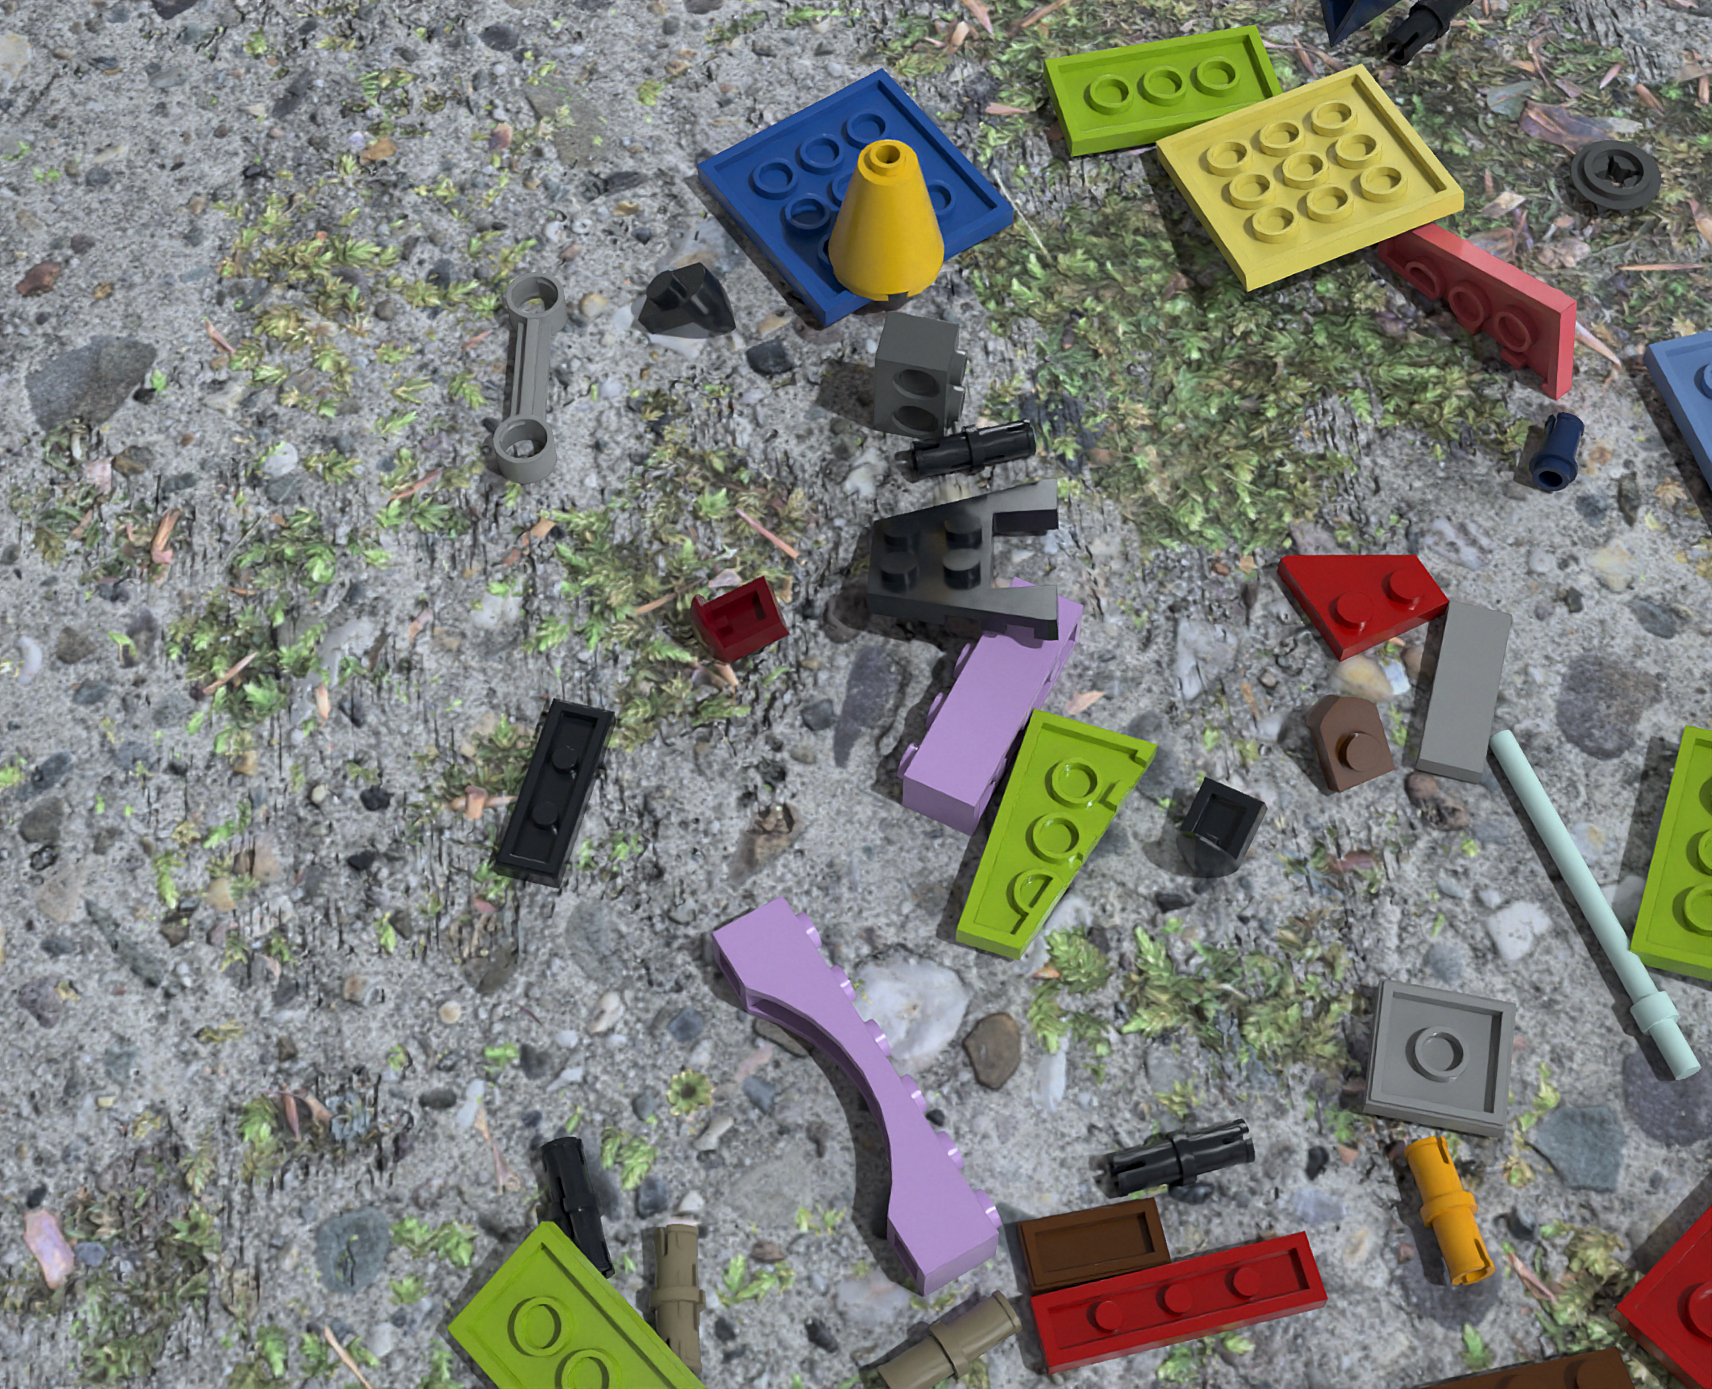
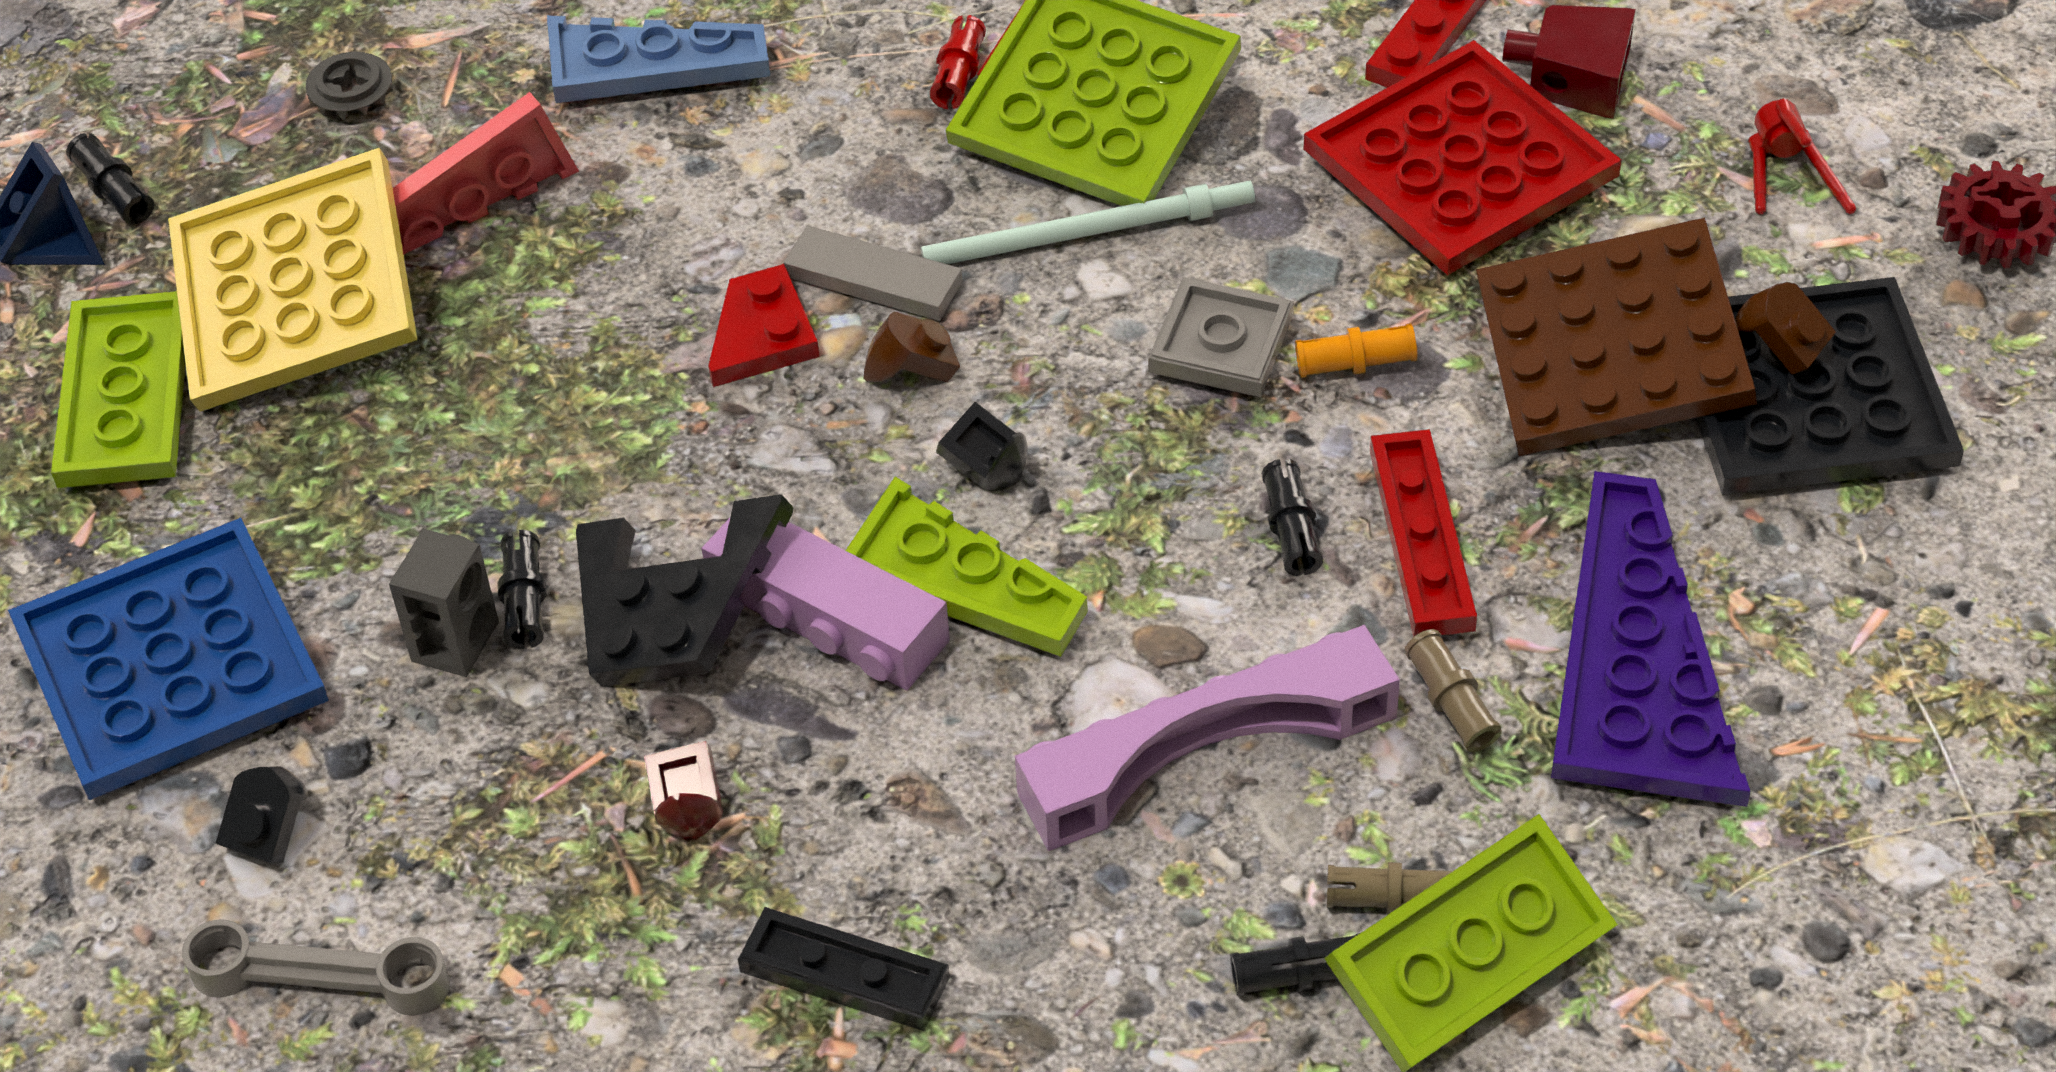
camera: 80 degrees left, 10 degrees down
(886, 226) = (256, 597): yellow cone -> none
(1091, 1245) = (1365, 586): reddish brown tile -> none
(1555, 462) = (655, 173): dark blue pin -> none

